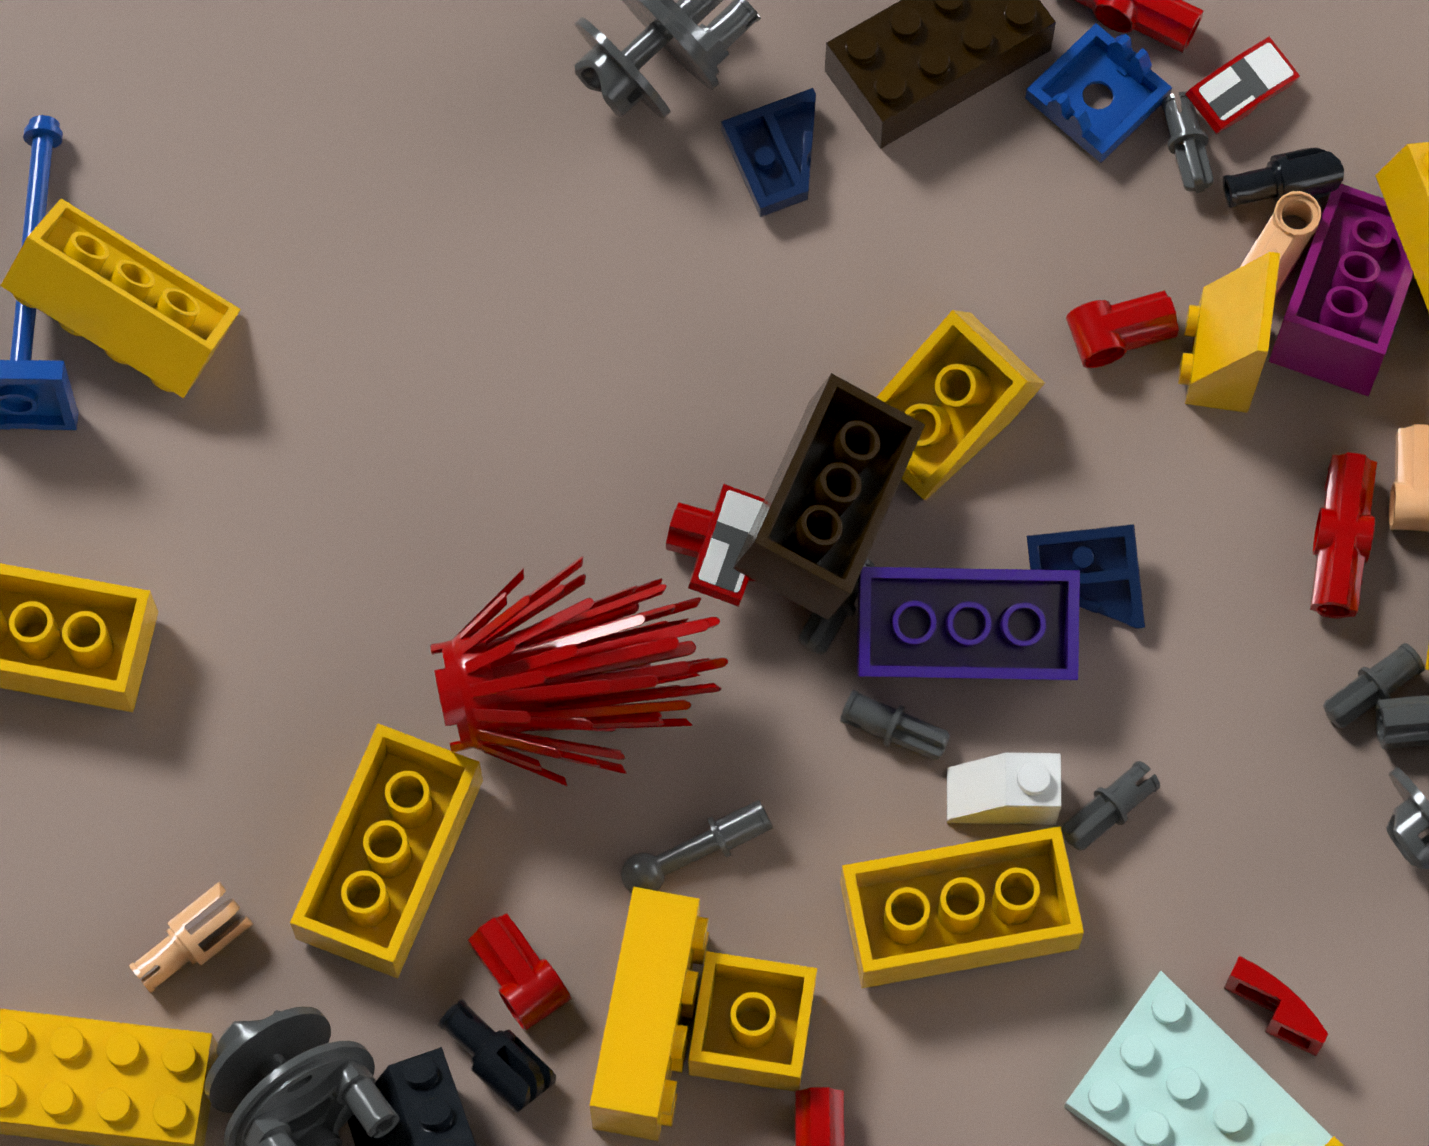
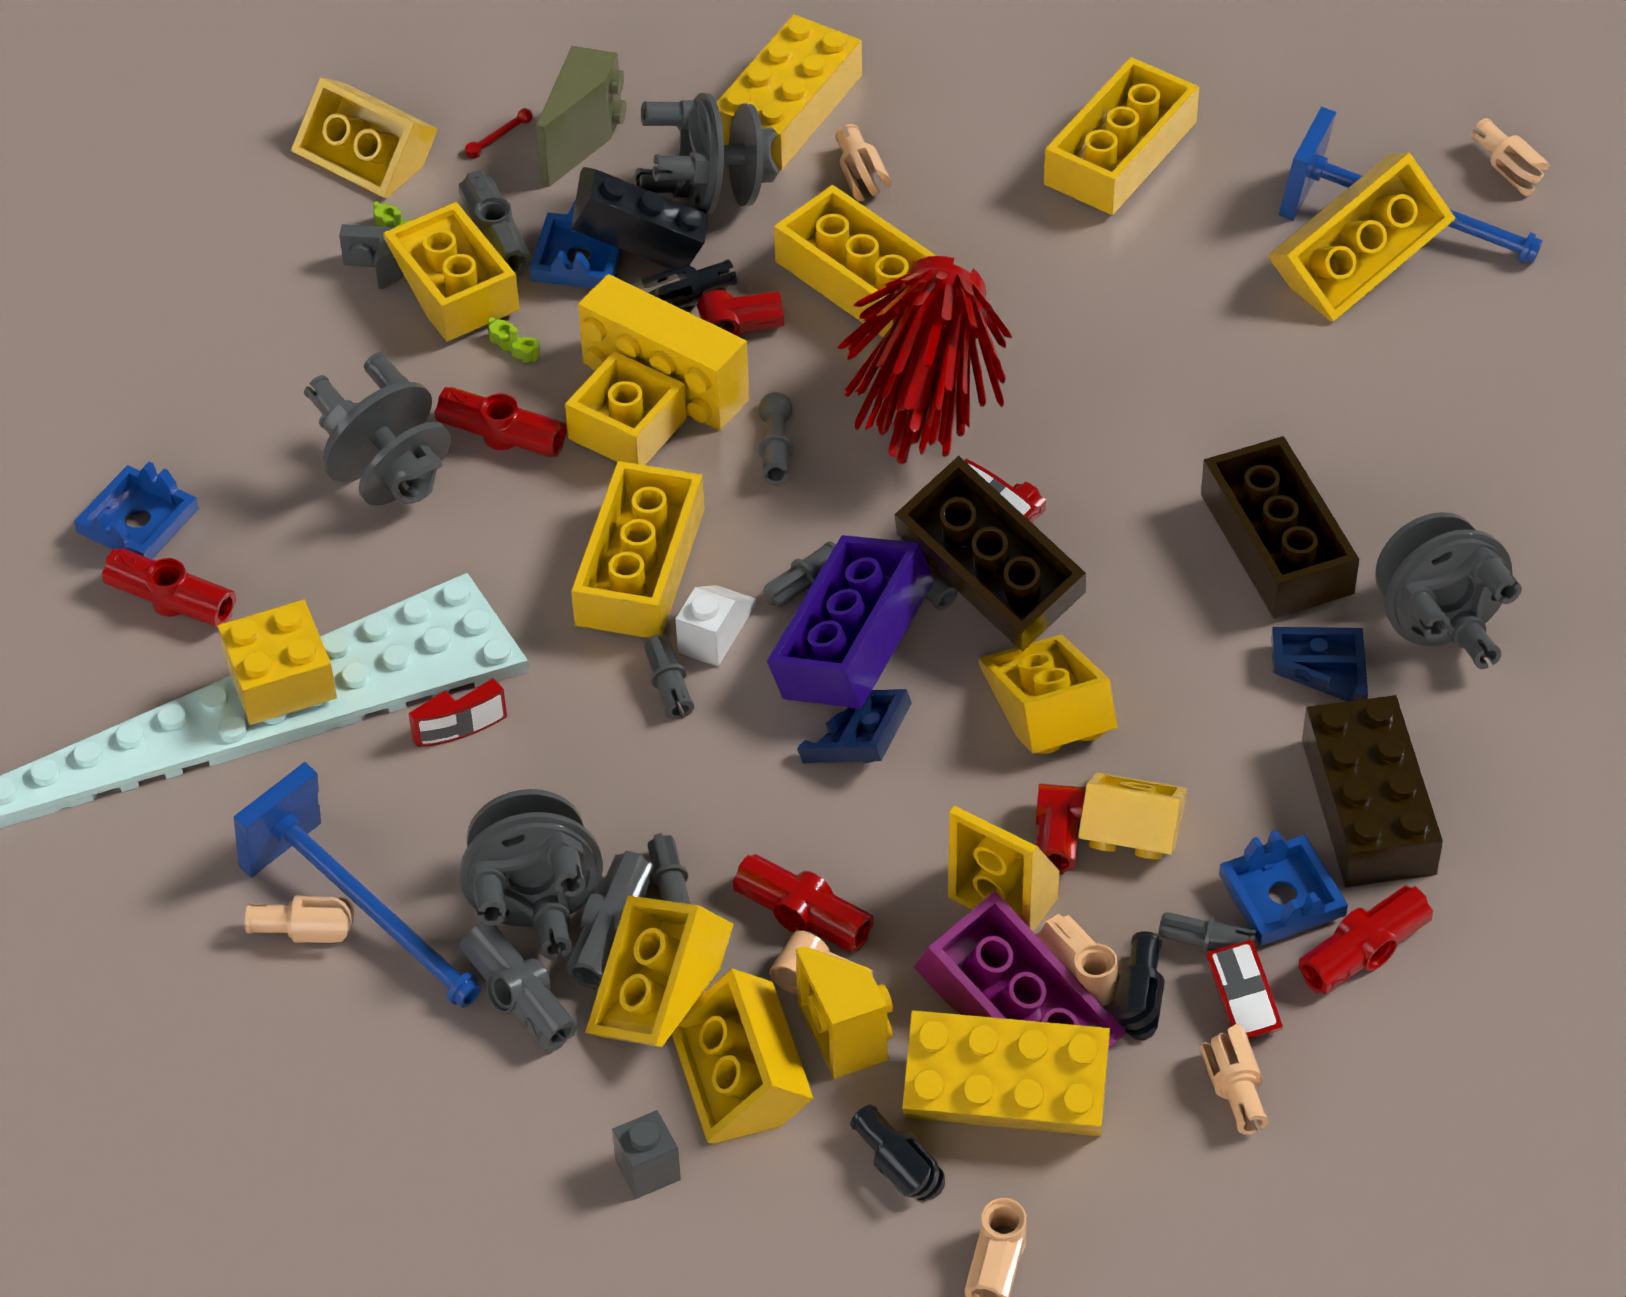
camera: 115 degrees right, 20 degrees down
(619, 242) = (1279, 527): none -> dark brown brick
(1069, 257) = (1132, 815): none -> yellow slope
(1347, 59) = (1236, 1076): none -> light nougat arm

